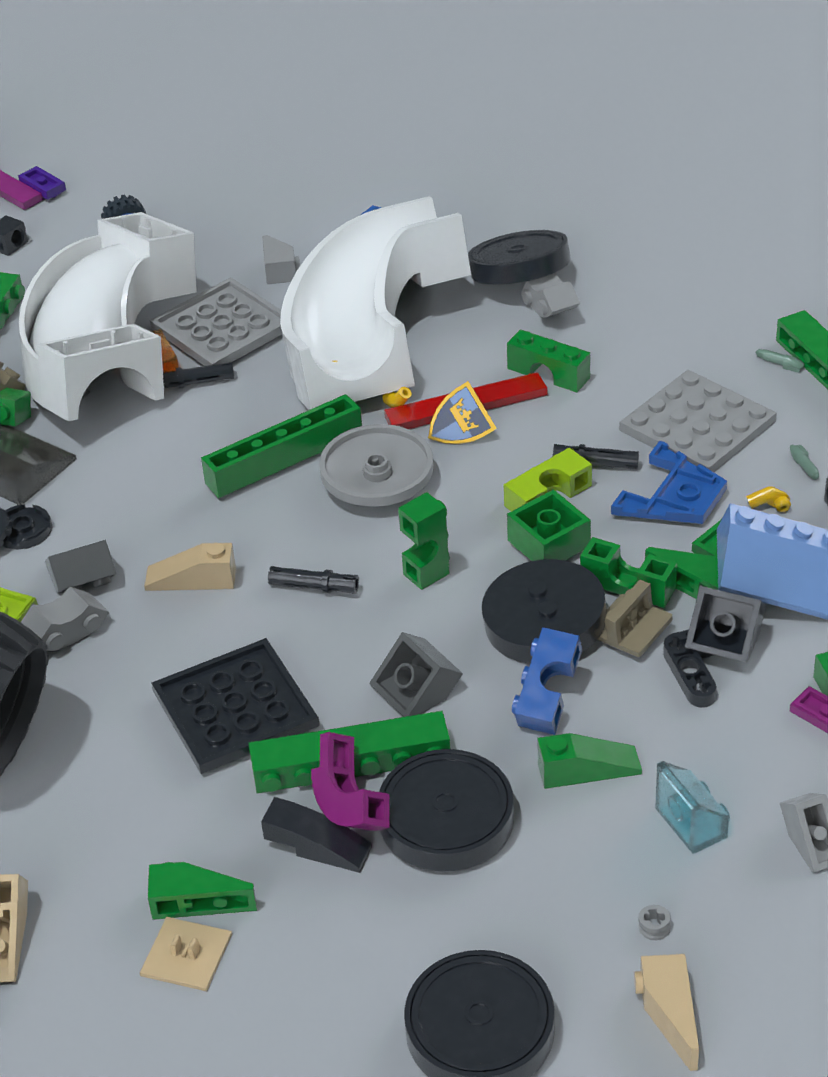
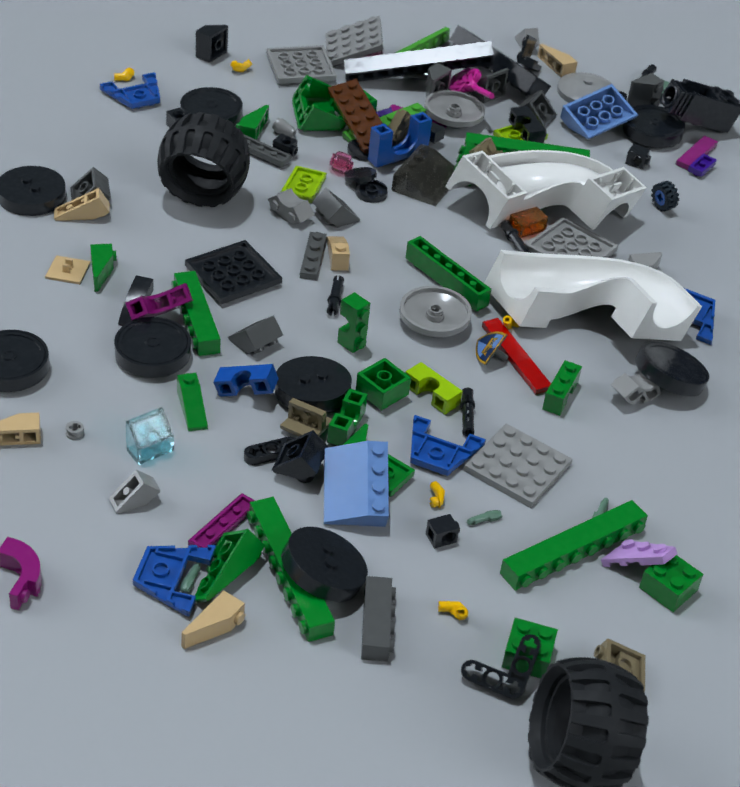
camera: 75 degrees right, 0 degrees up
(196, 605) = (313, 255): none -> dark grey plate

